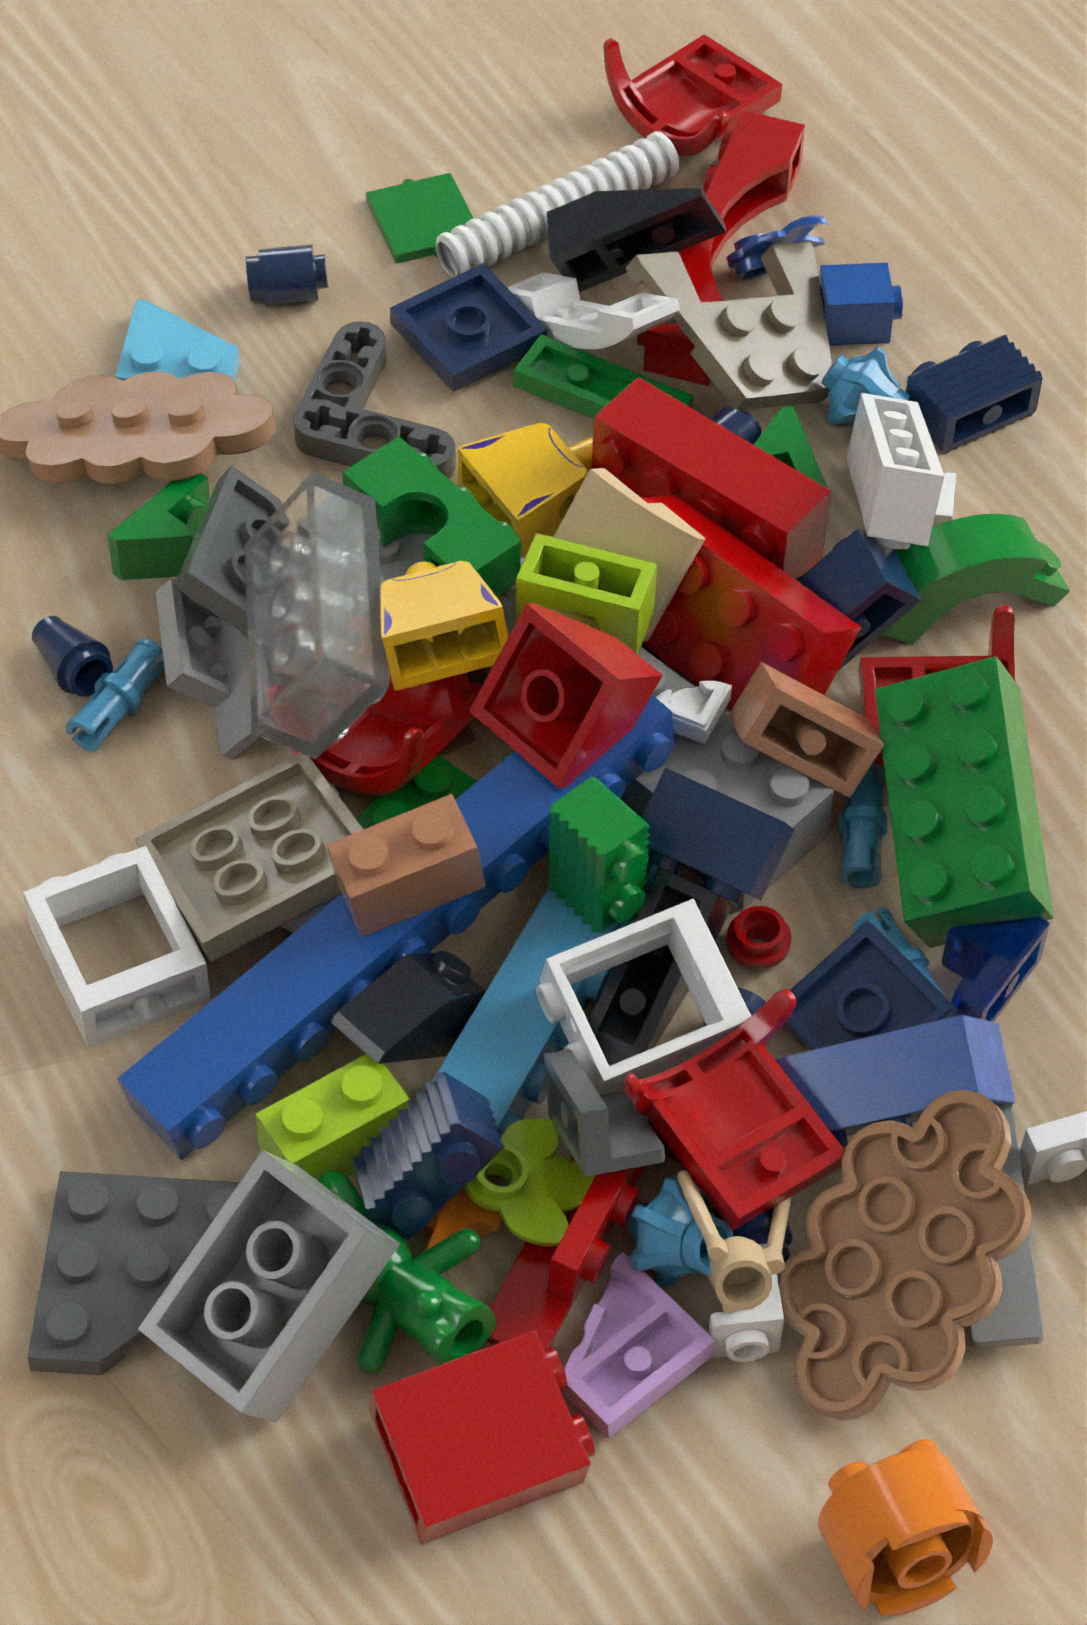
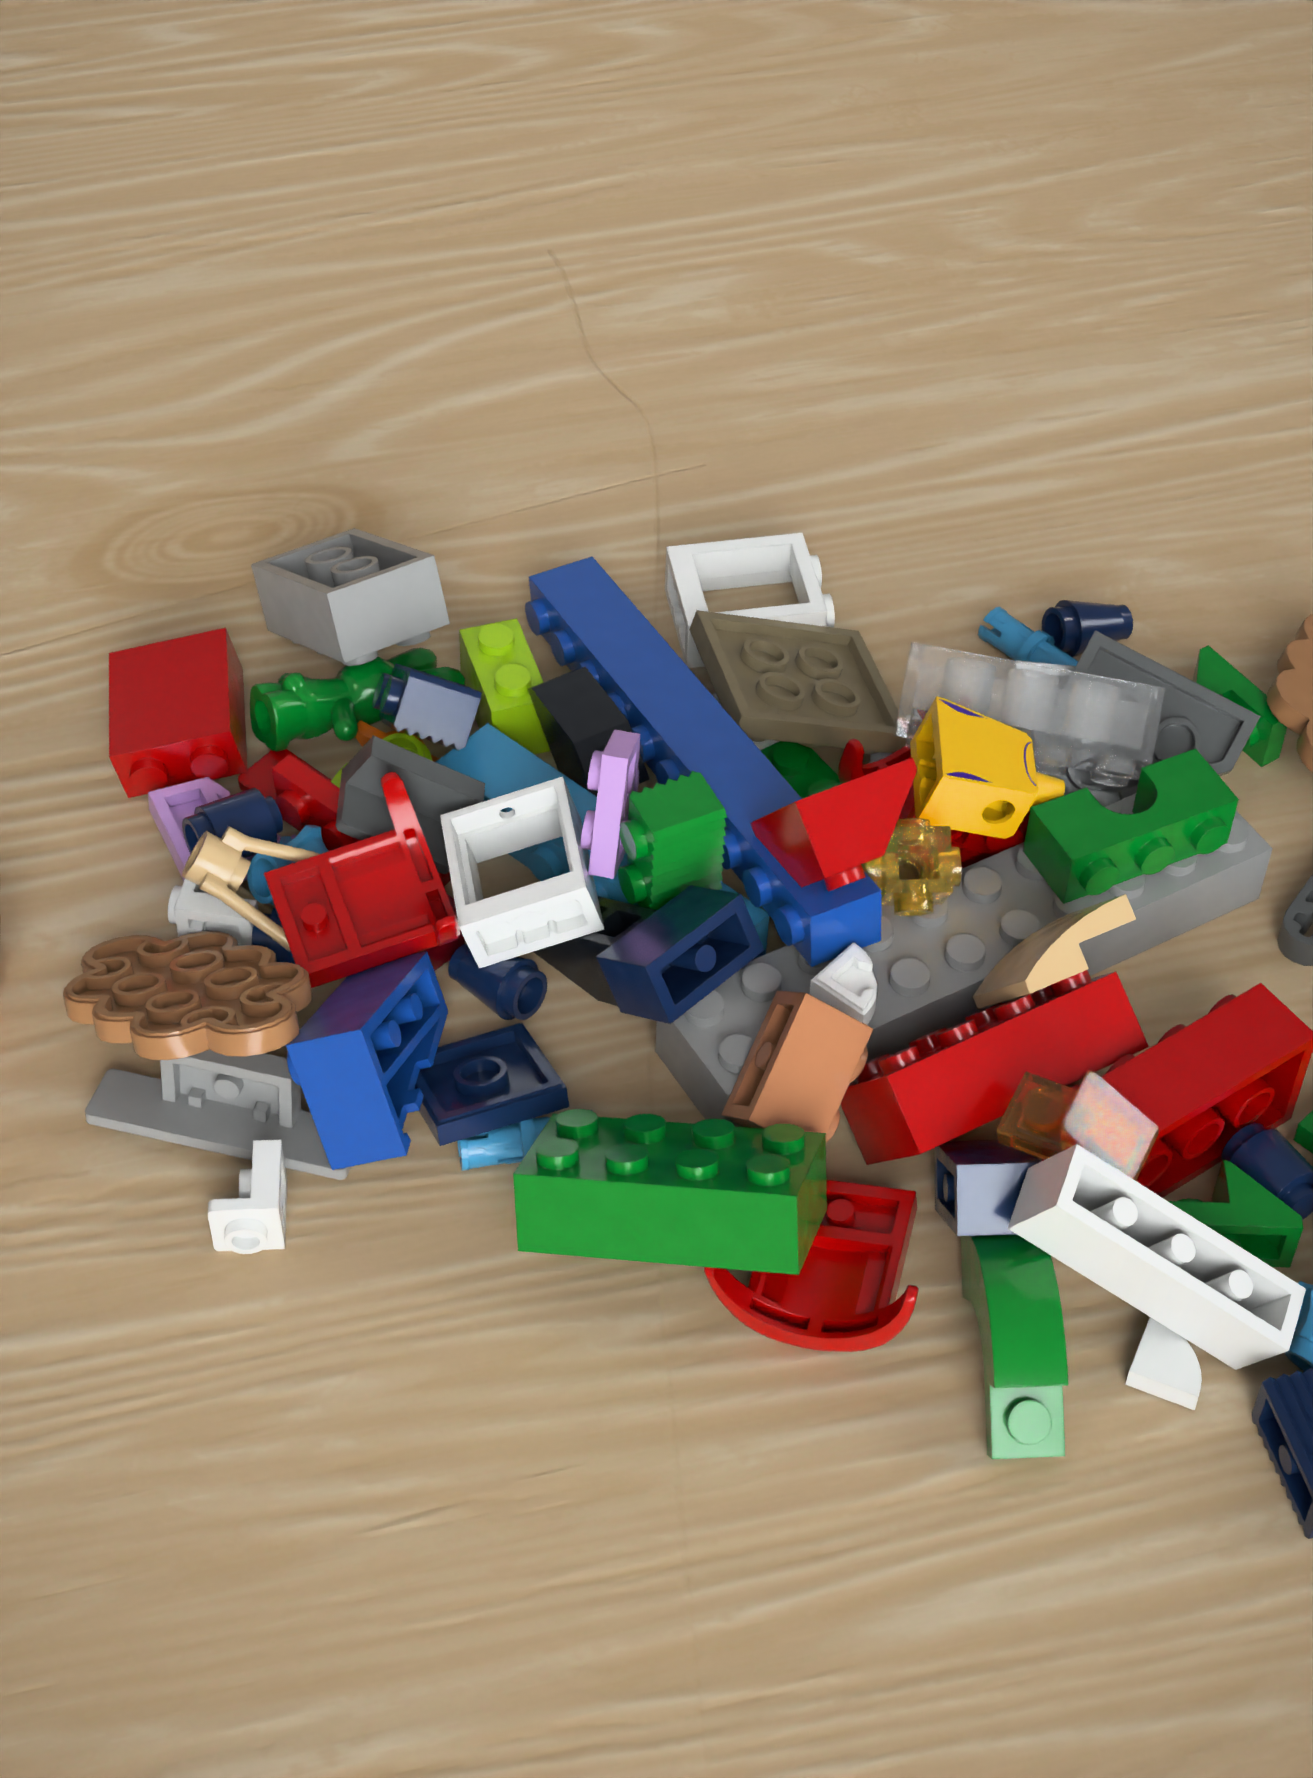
camera: 105 degrees right, 5 degrees down
(110, 1260) = (475, 563): dark grey plate -> none
(406, 865) = (693, 699): nougat brick -> none
(525, 477) = (1231, 962): yellow torso -> none
(571, 899) = (614, 776): none -> lavender wing
(589, 583) = (993, 904): lime brick -> none
(659, 1296) = (244, 811): none -> dark blue brick
(759, 923) = (608, 1024): red plate -> none
(818, 510) = (1054, 1117): none -> slope
(992, 962) = (477, 1200): clear blue slope -> none

